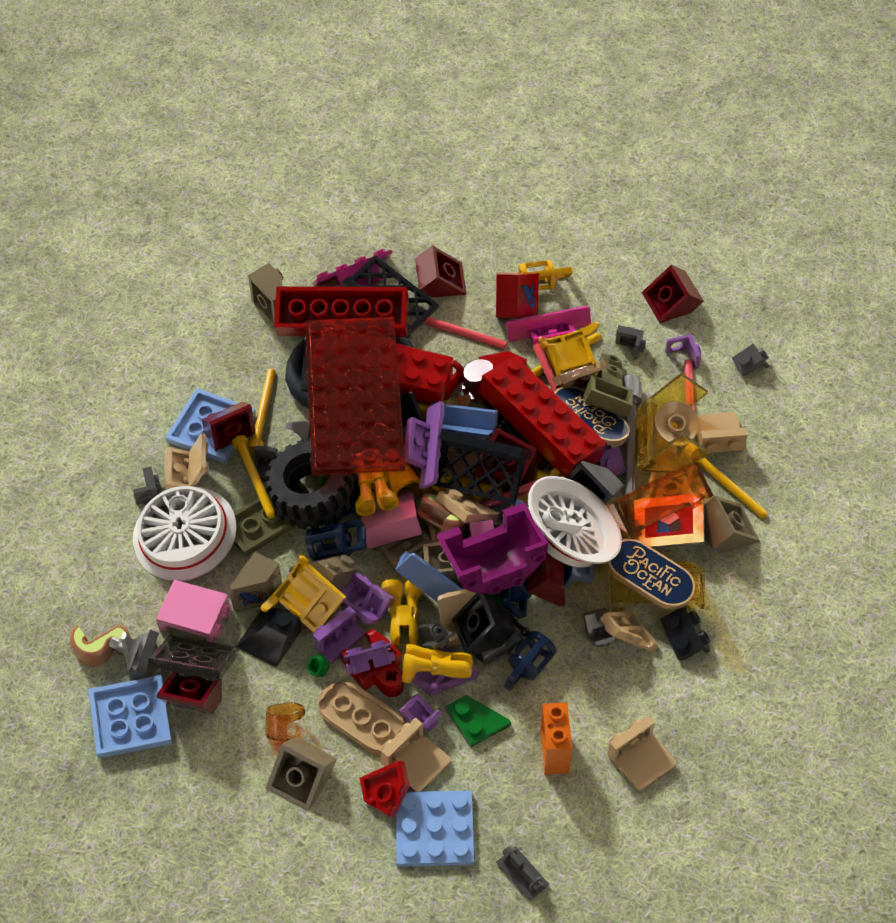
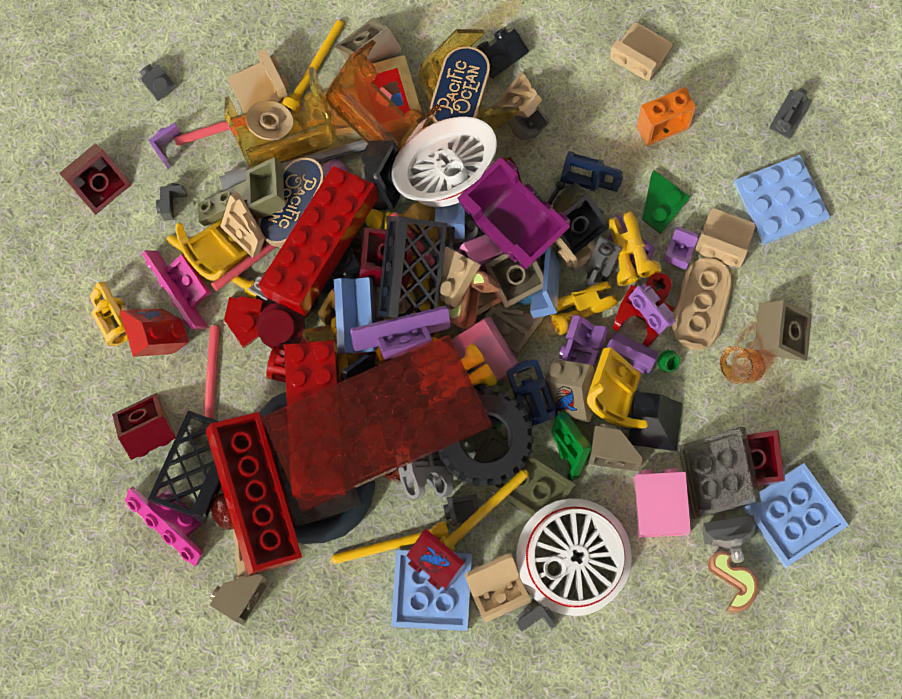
camera: 105 degrees left, 20 degrees up
(281, 557) = (570, 444): none -> green wing
(386, 787) = (767, 250): red plate -> none

